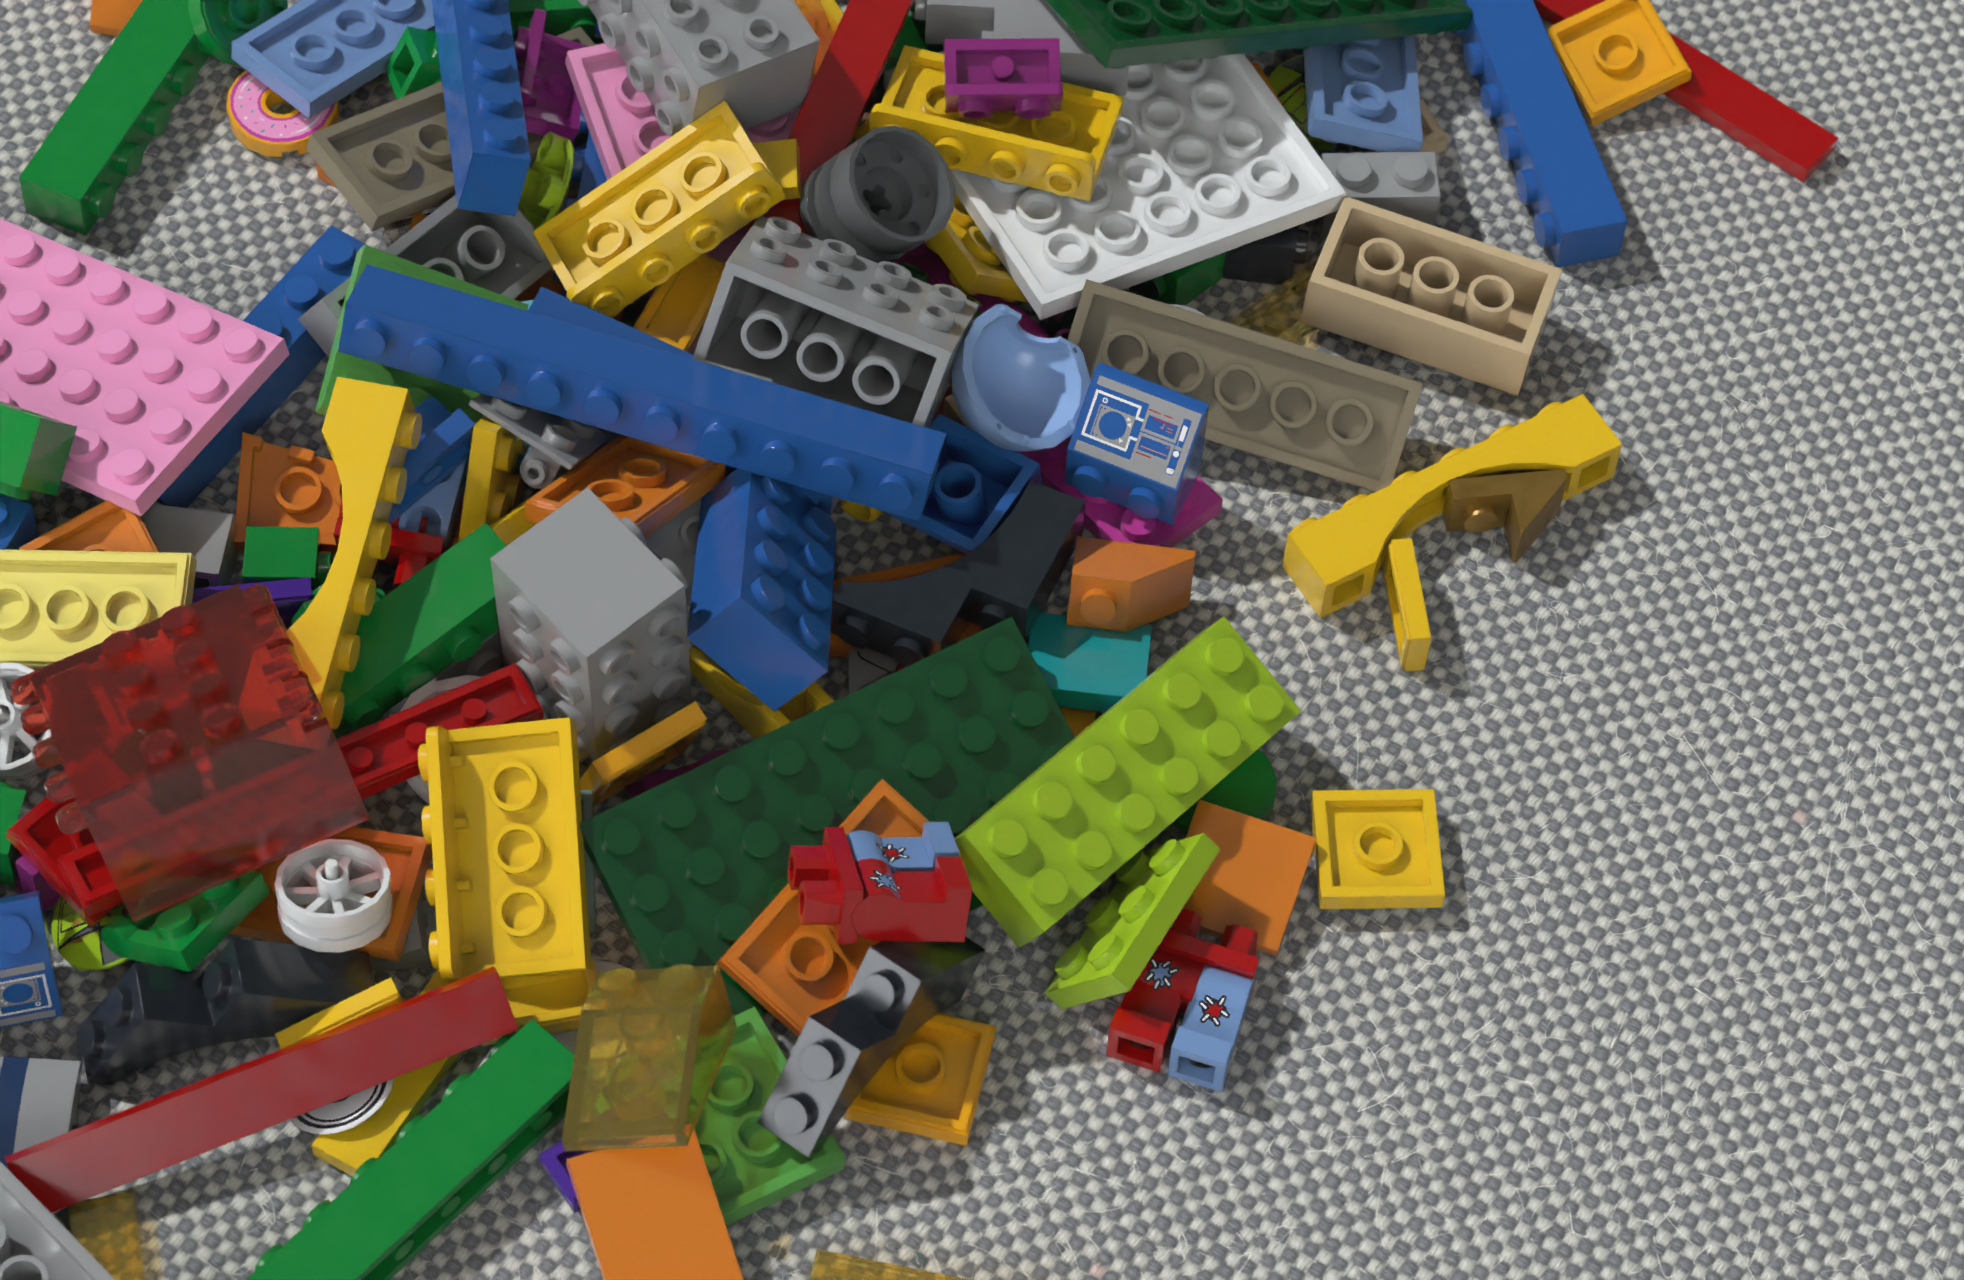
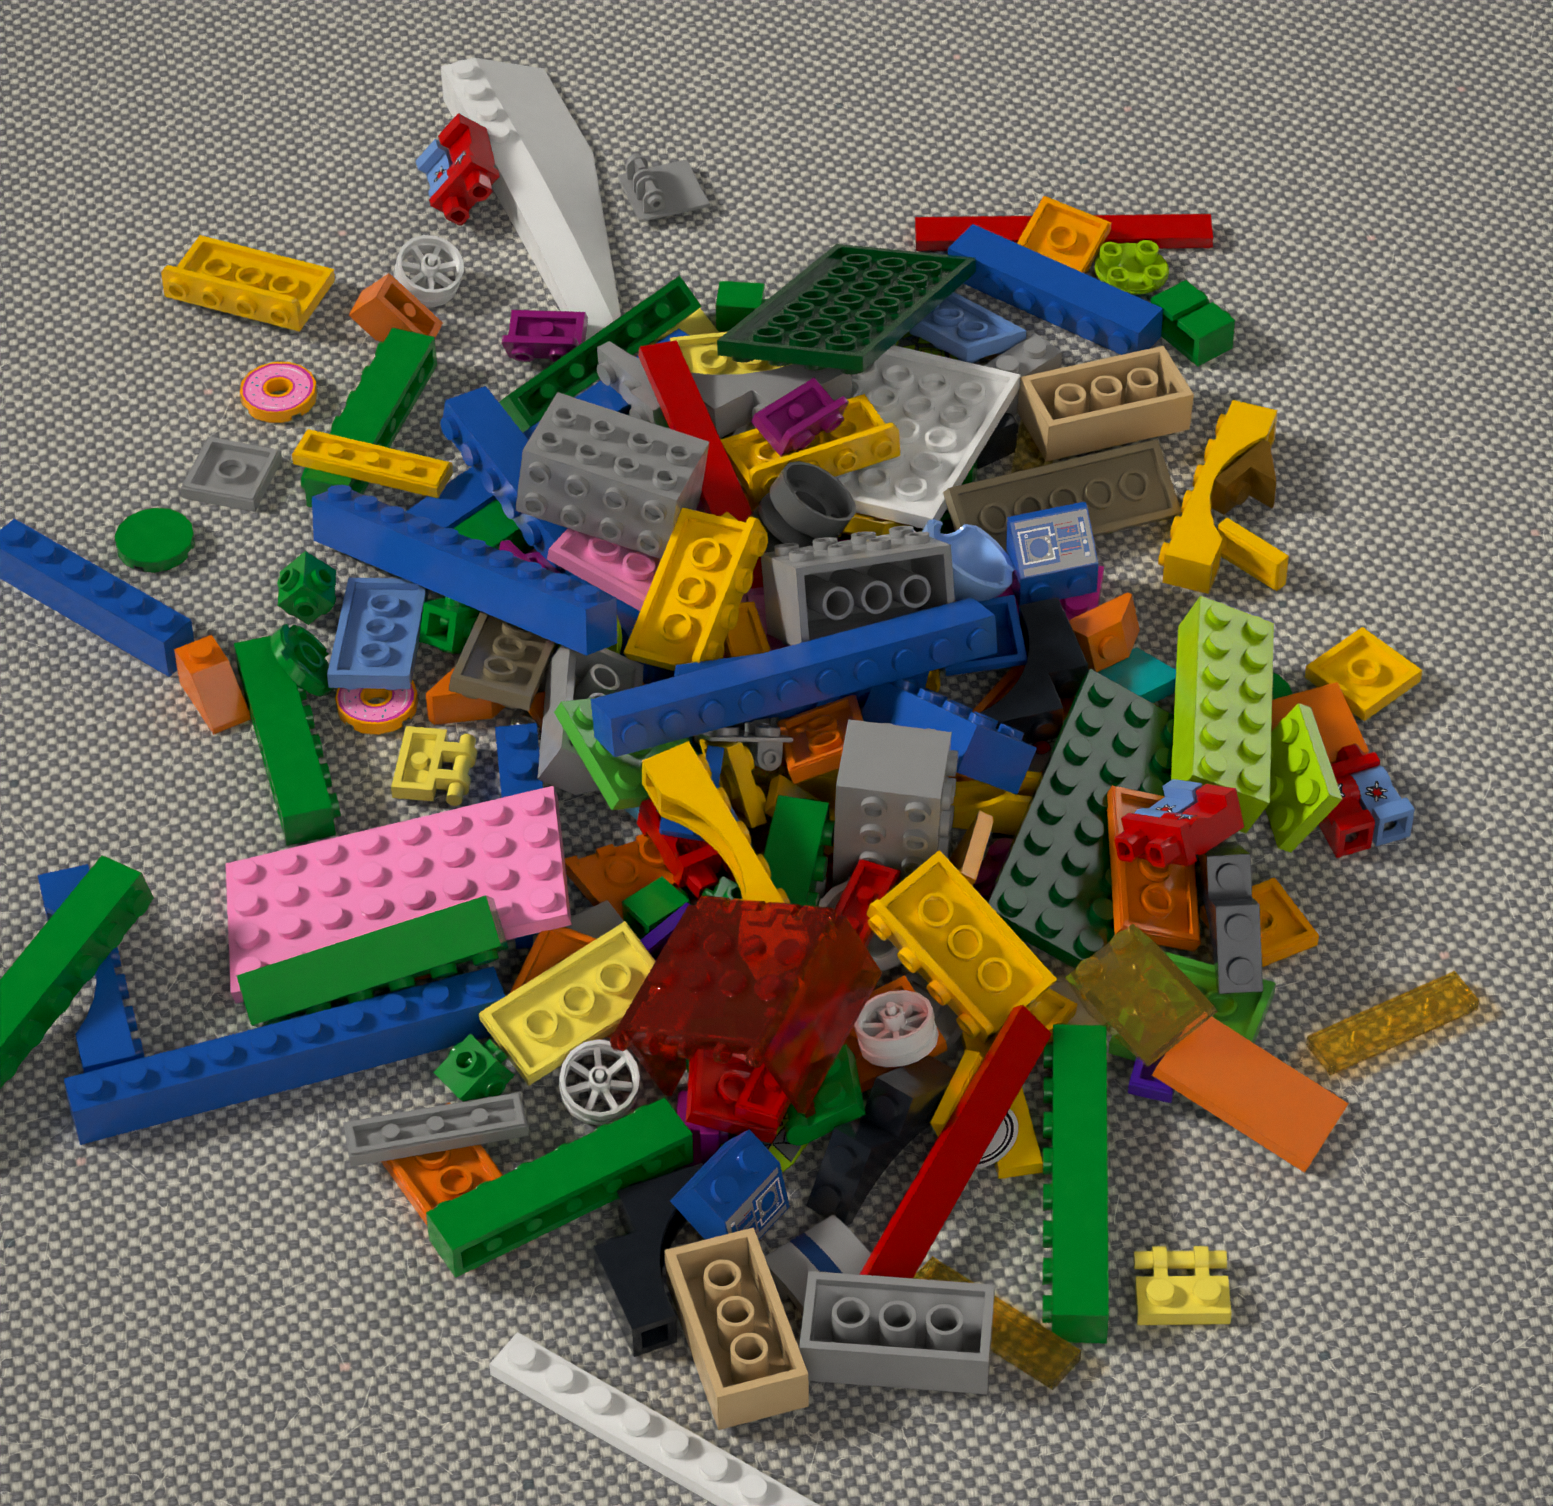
camera: 35 degrees left, 10 degrees down
(244, 212) = (420, 765): none -> light yellow plate
(1660, 263) = (1194, 324): none -> green piece
(1668, 144) = (1132, 266): none -> lime dish

